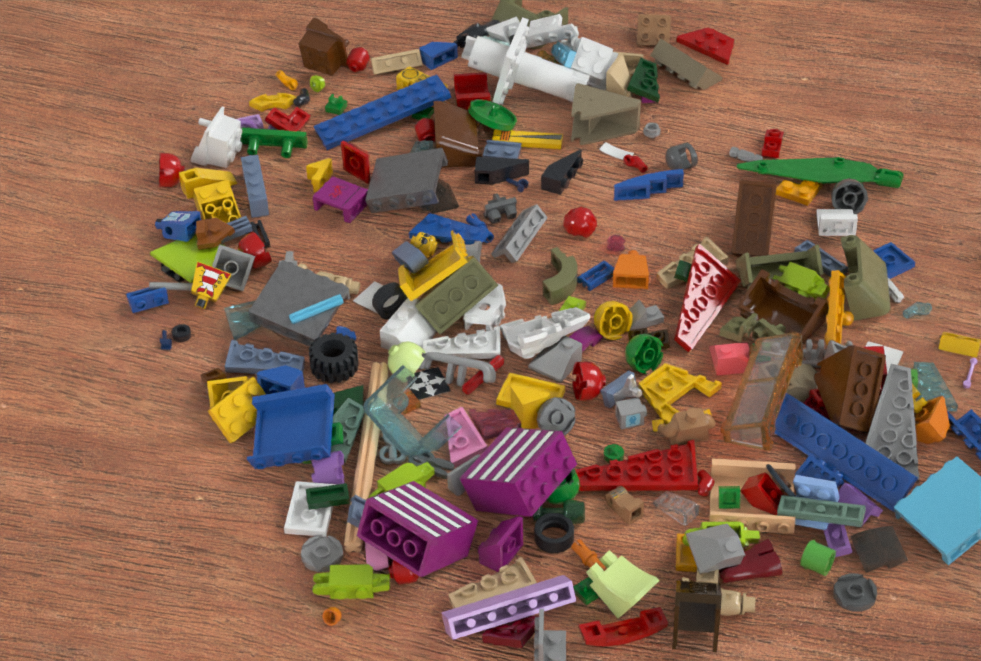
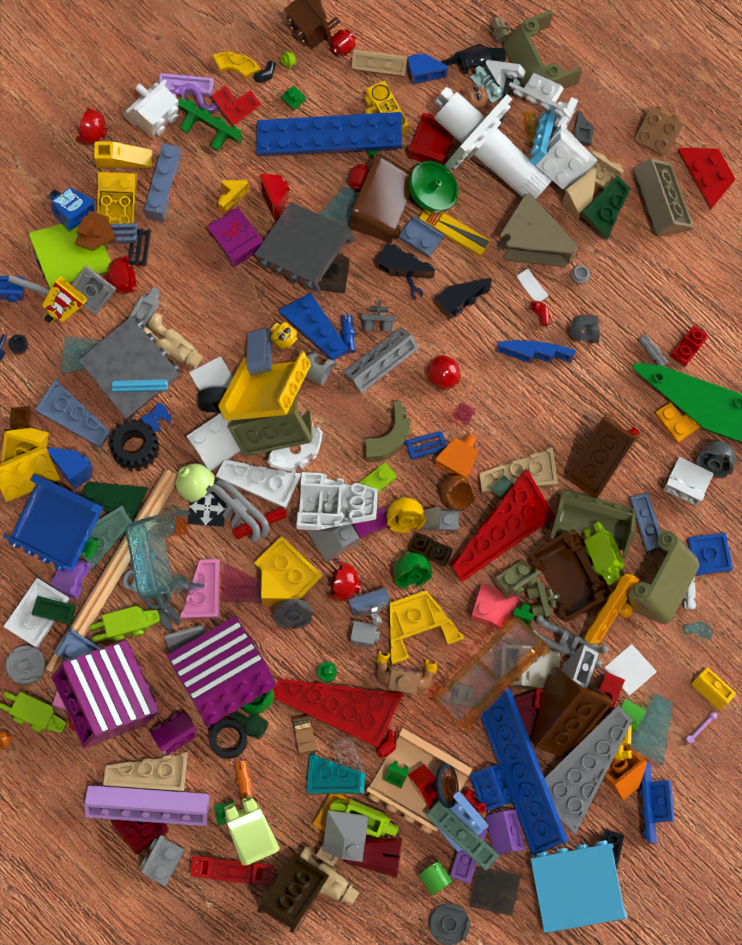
camera: 20 degrees right, 30 degrees up
(289, 82) = (264, 45): light orange arm -> none
(484, 15) = (500, 30): none -> dark tan piece
(647, 288) = (457, 492): none -> dark orange hair
(670, 521) = (333, 778): none -> teal wing

